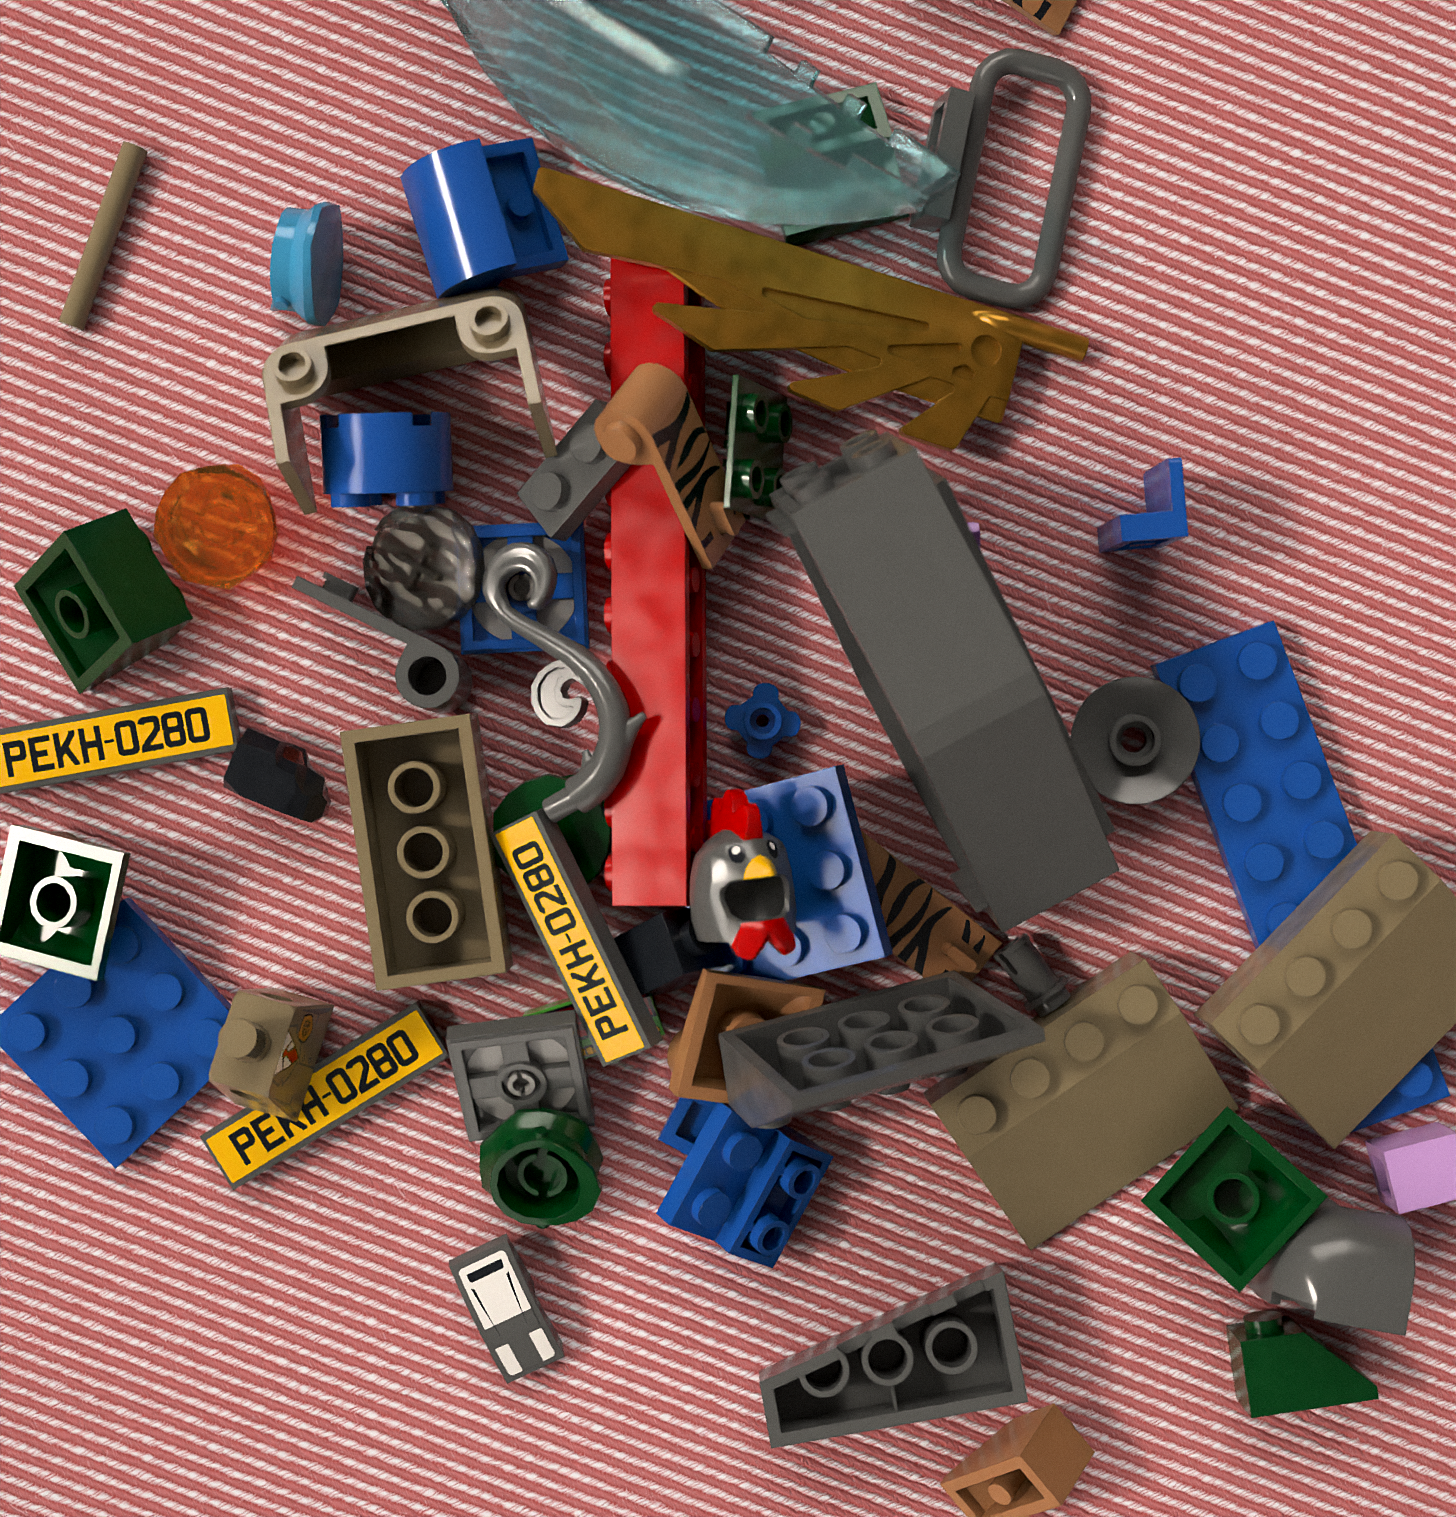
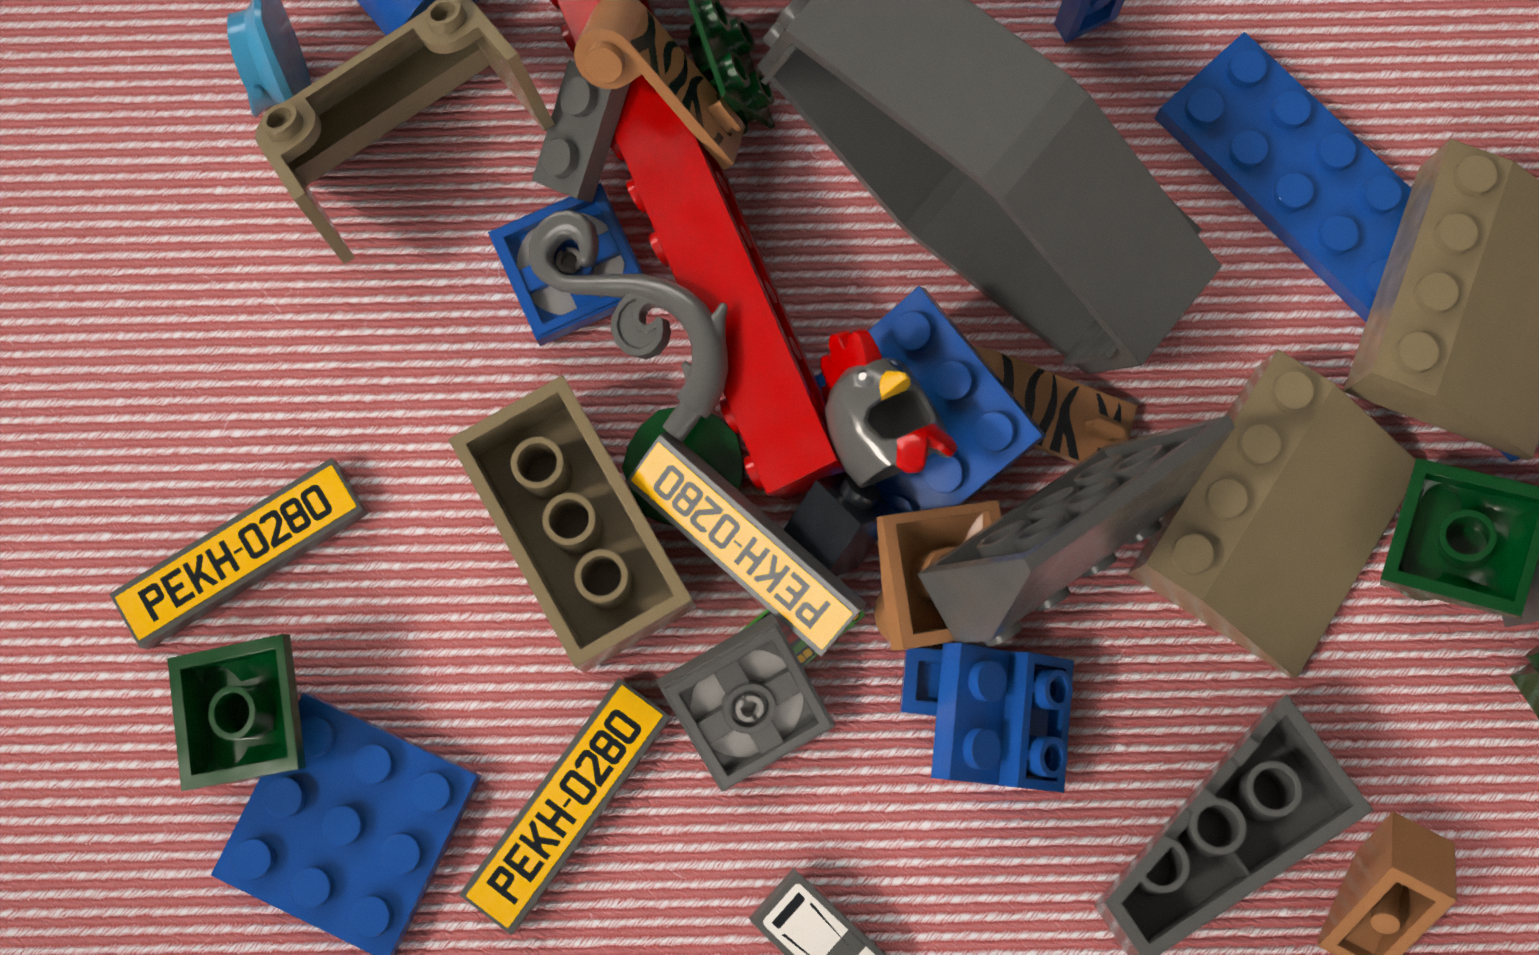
camera: 20 degrees left, 10 degrees down
(102, 599) = (185, 423): dark green slope -> none
(103, 236) = (83, 119): dark tan bar -> none
(216, 525) = (268, 314): clear orange hat -> none
(269, 1050) = (491, 769): dark tan torso -> none
(277, 776) = (406, 518): black rock -> none
(386, 455) = (401, 189): blue brick -> none
(424, 567) = (473, 278): clear smoke tile -> none
(425, 672) = (506, 353): dark grey door -> none
(542, 1167) = (801, 785): dark green hat -> none
(780, 724) = (833, 311): blue plate -> none
(1033, 976) = (1167, 411): dark grey pin -> none
(1168, 747) = (1195, 156): dark grey dish -> none

